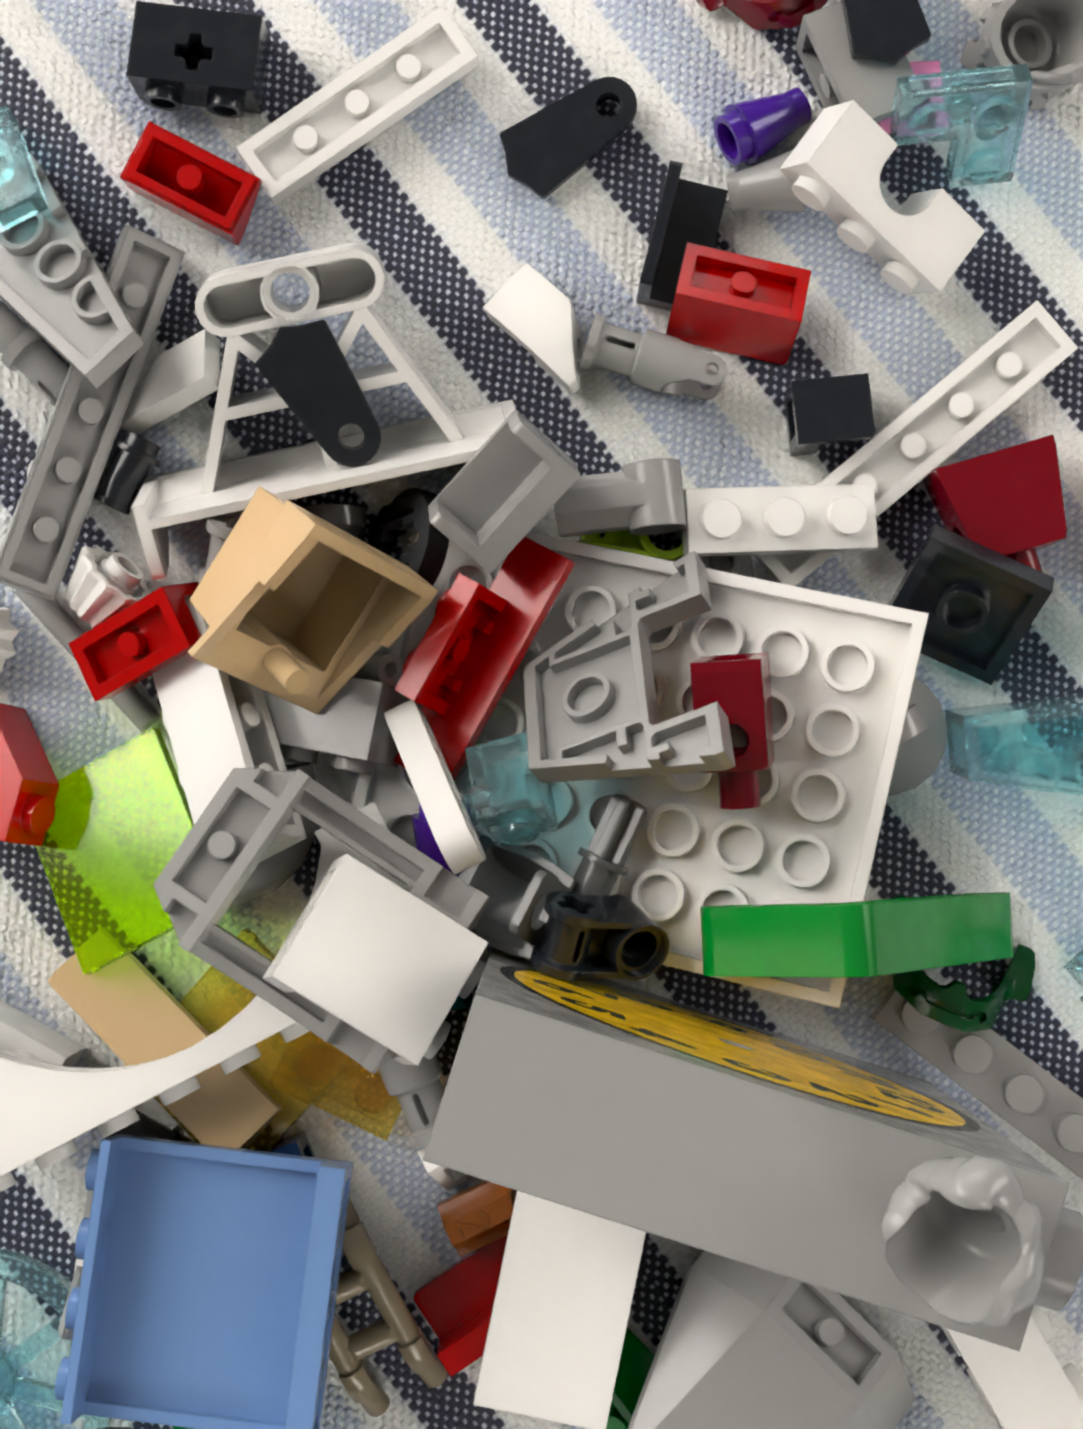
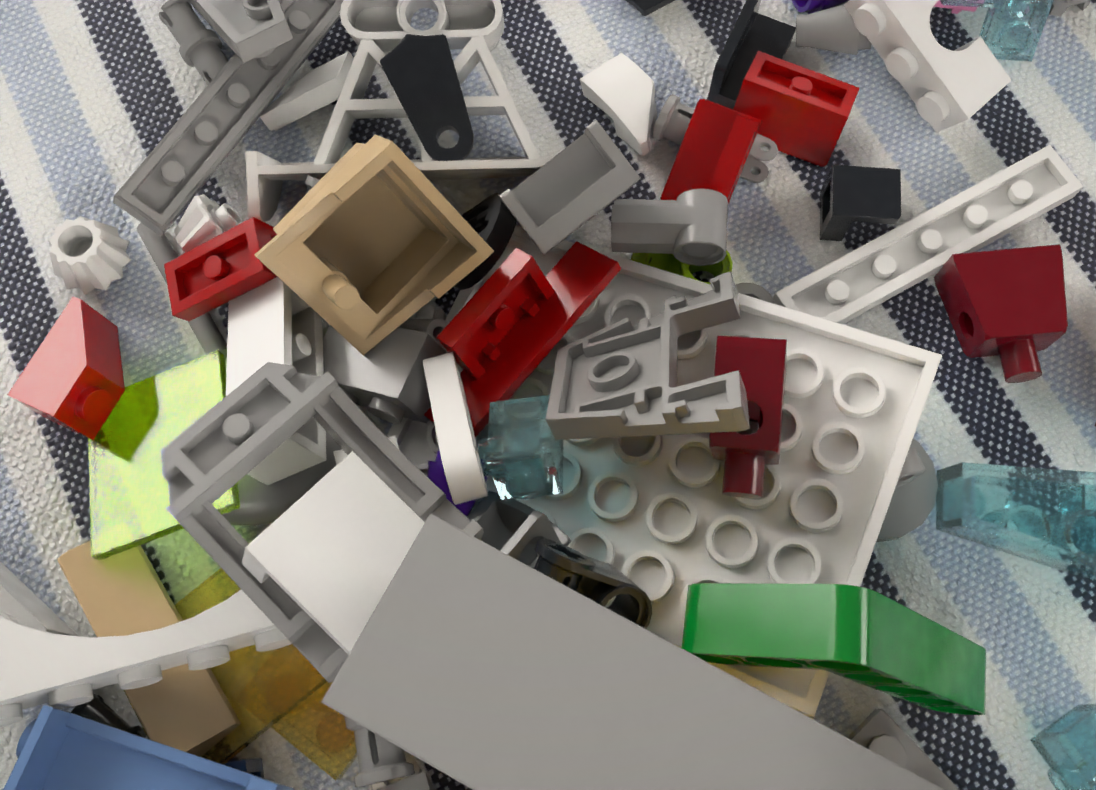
camera: 10 degrees right, 15 degrees down
(127, 472) = (265, 138): black pin -> none
(609, 846) = (610, 516): dark grey axle -> none
(652, 394) = (712, 151): none -> red panel
(780, 520) = (810, 272): white plate -> none
(953, 1006) = (922, 742): dark green helmet -> none
(974, 602) = (981, 375): black plate -> none

